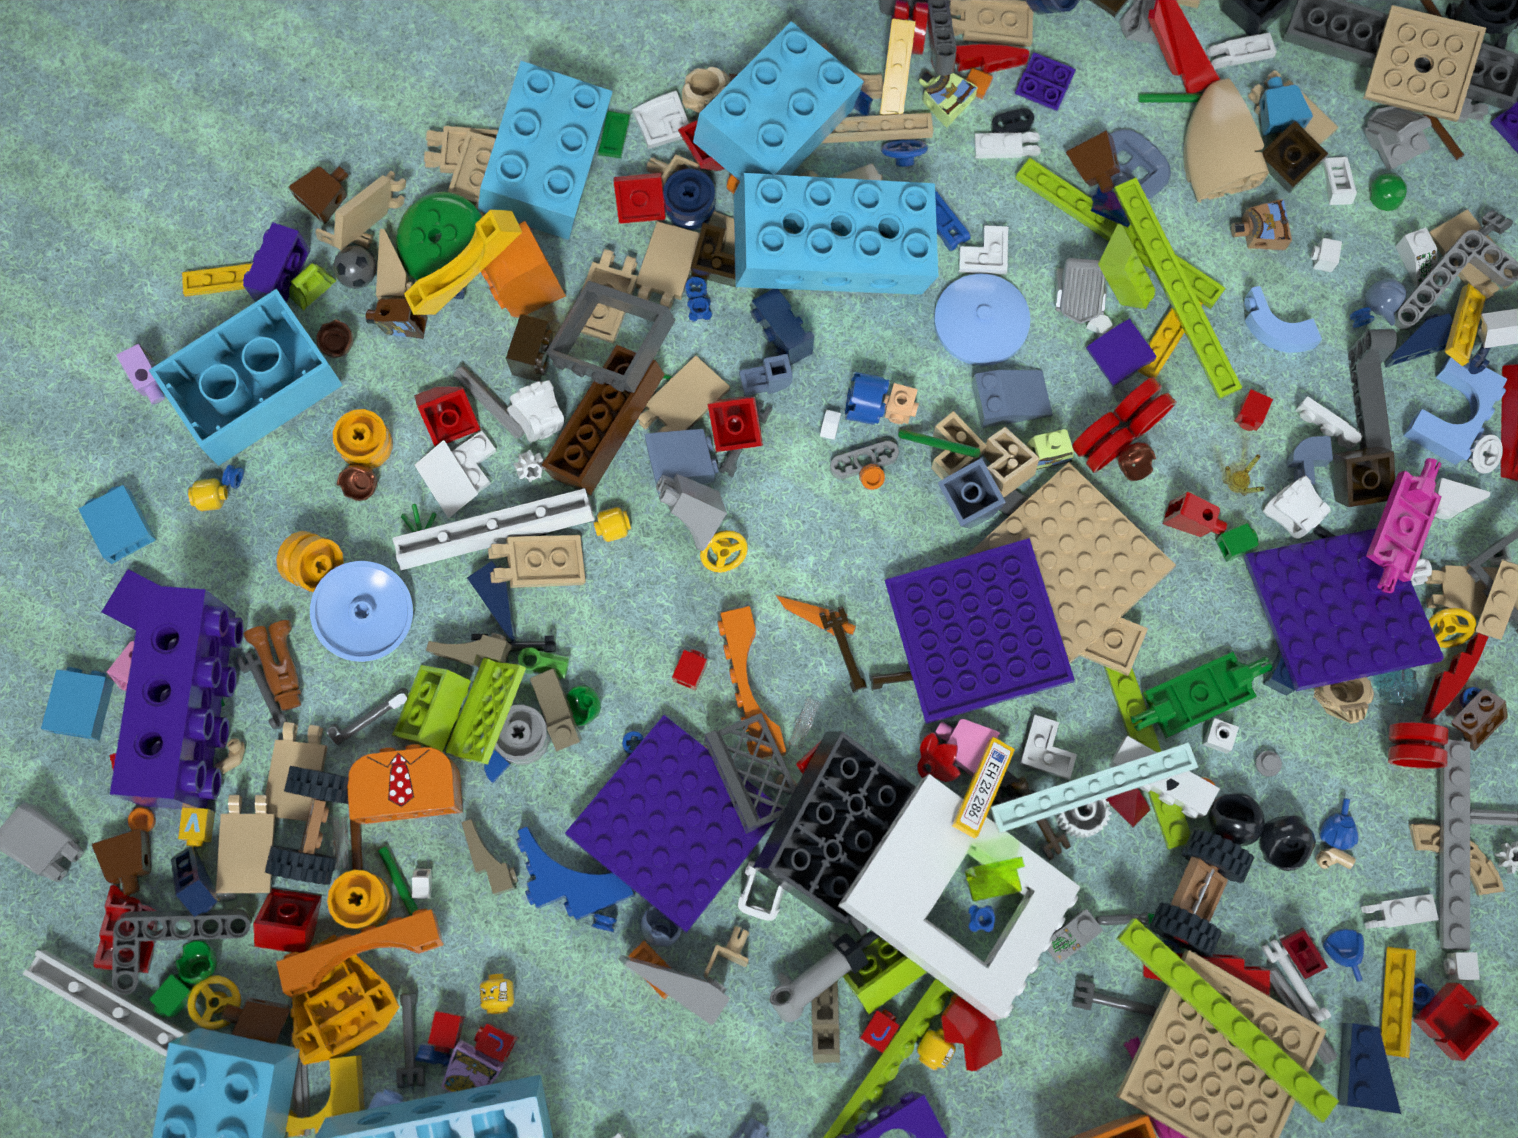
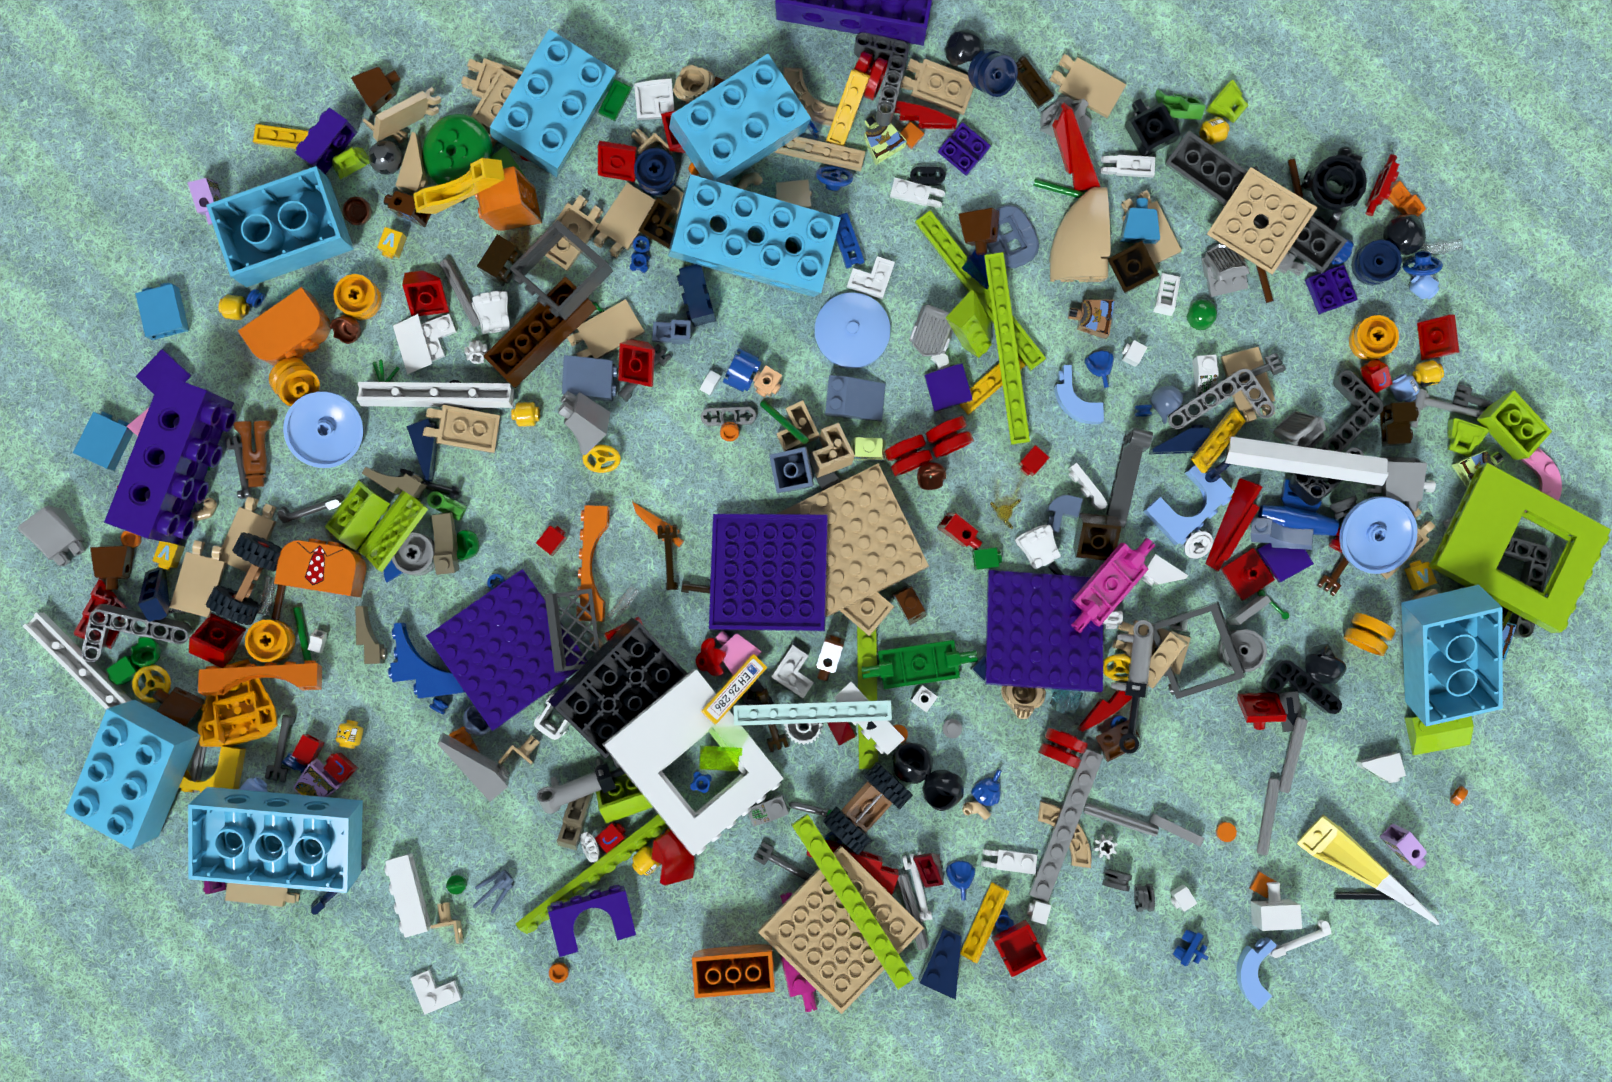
camera: 20 degrees right, 10 degrees up
(284, 499) = (287, 328): none -> orange brick
(388, 365) = (391, 243): none -> yellow brick
(857, 1051) = (589, 847): none -> white gear
(1091, 704) = (831, 649): none -> torso
(1164, 622) = (909, 604): none -> reddish brown torso
(1291, 278) = (1100, 364): none -> blue piece
(1482, 629) = (1138, 678): none -> light grey piece

